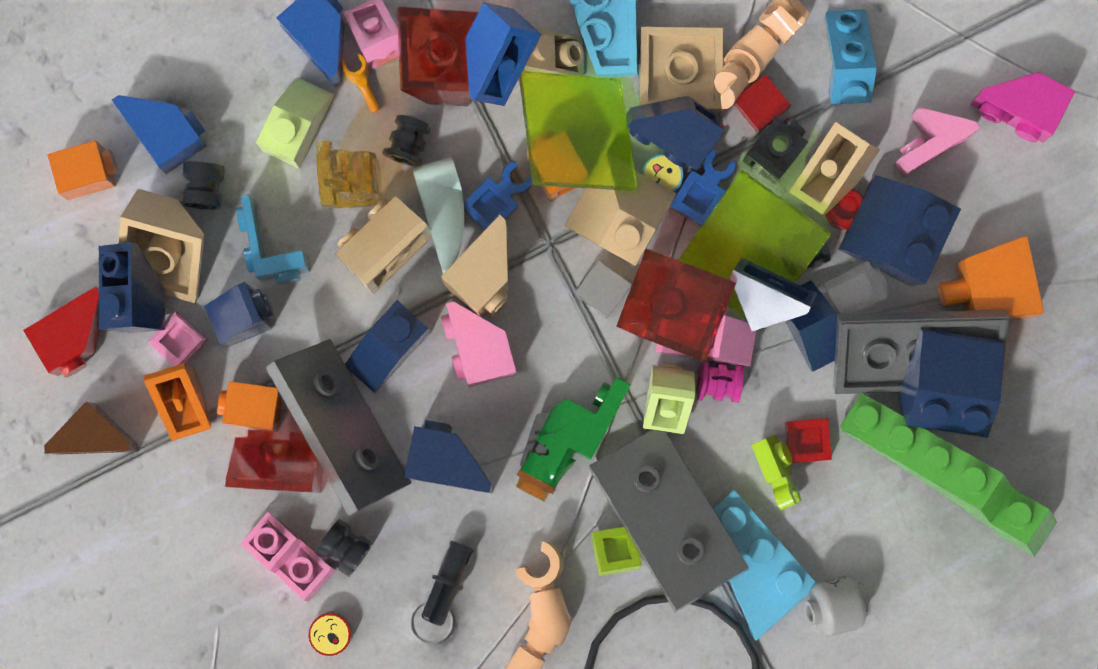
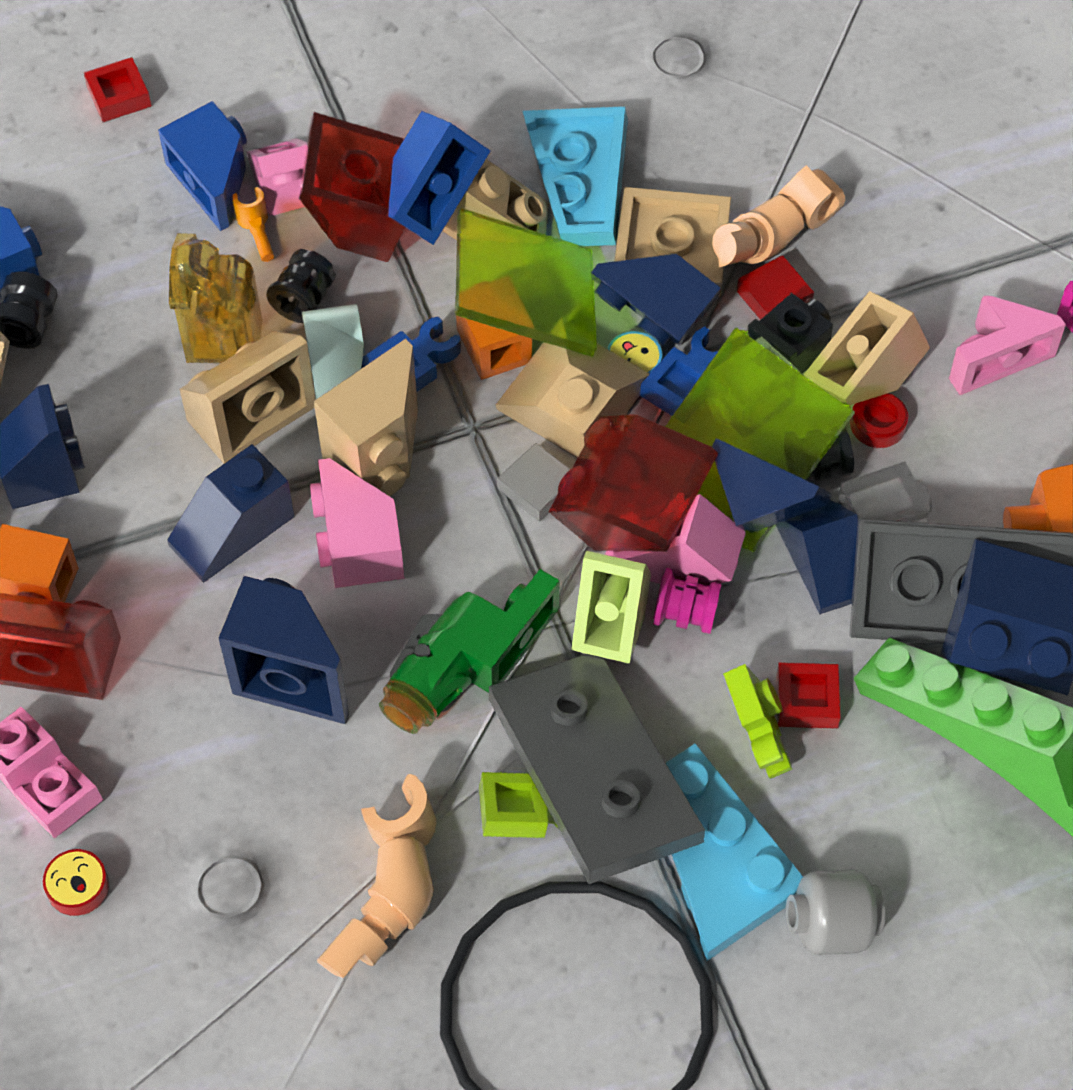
camera: 10 degrees right, 25 degrees down
(284, 267) = (95, 408): dark azure bracket -> none
(294, 122) = (141, 255): yellowish green slope -> none
(338, 425) = (143, 598): dark grey plate -> none
(344, 547) = (119, 761): black wheel -> none
(447, 583) = (260, 825): black axle -> none
(852, 57) = (896, 249): dark azure bracket -> none
(899, 230) = (954, 437): dark blue slope -> none

